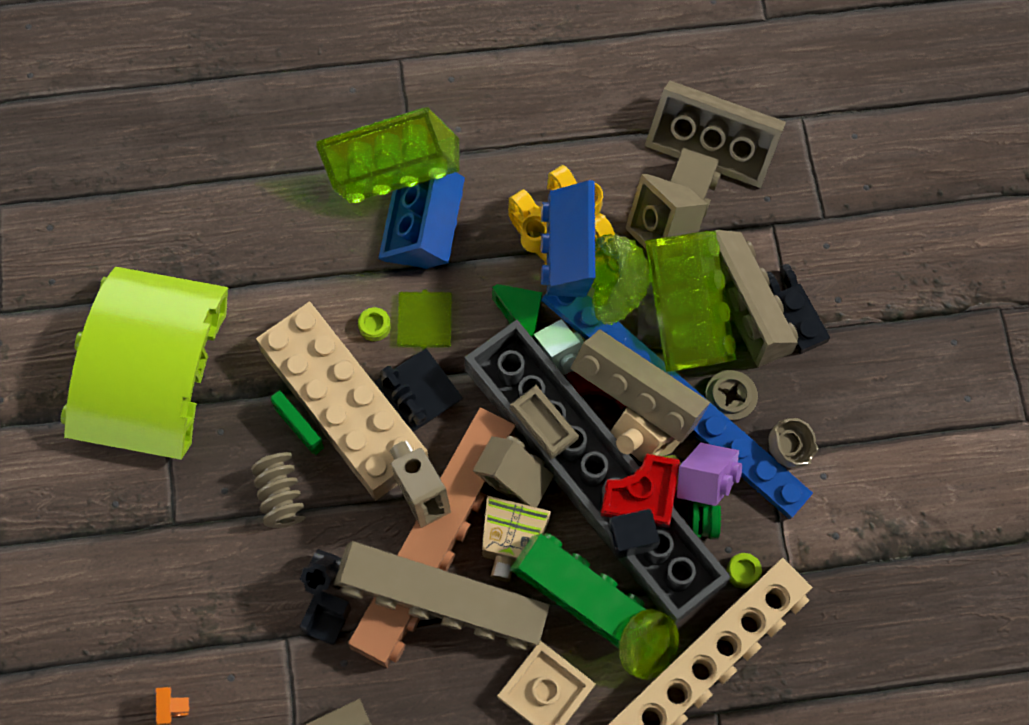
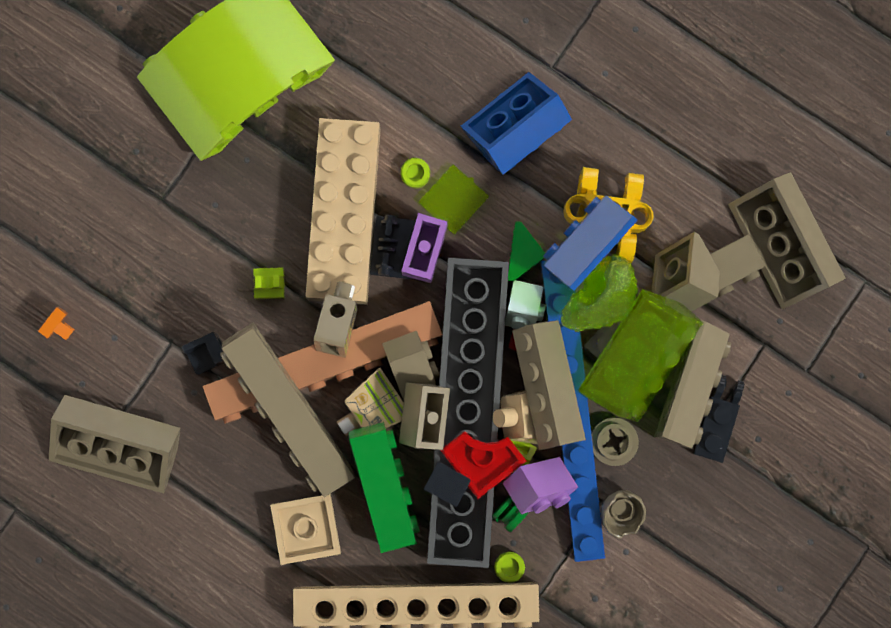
camera: 40 degrees right, 15 degrees up
(276, 492) = (246, 238): dark tan piece -> none
(297, 423) = (299, 205): green tile -> none
(321, 572) = (225, 323): black piece -> none
(329, 514) = (269, 283): none -> lime tile
(389, 155) = (526, 63): clear neon green slope -> none
(438, 368) = (424, 248): none -> medium lavender brick
(544, 422) = (459, 352): dark tan tile -> none
(562, 496) = (424, 416): none -> dark tan brick
(648, 644) = (396, 560): clear neon green tile -> none

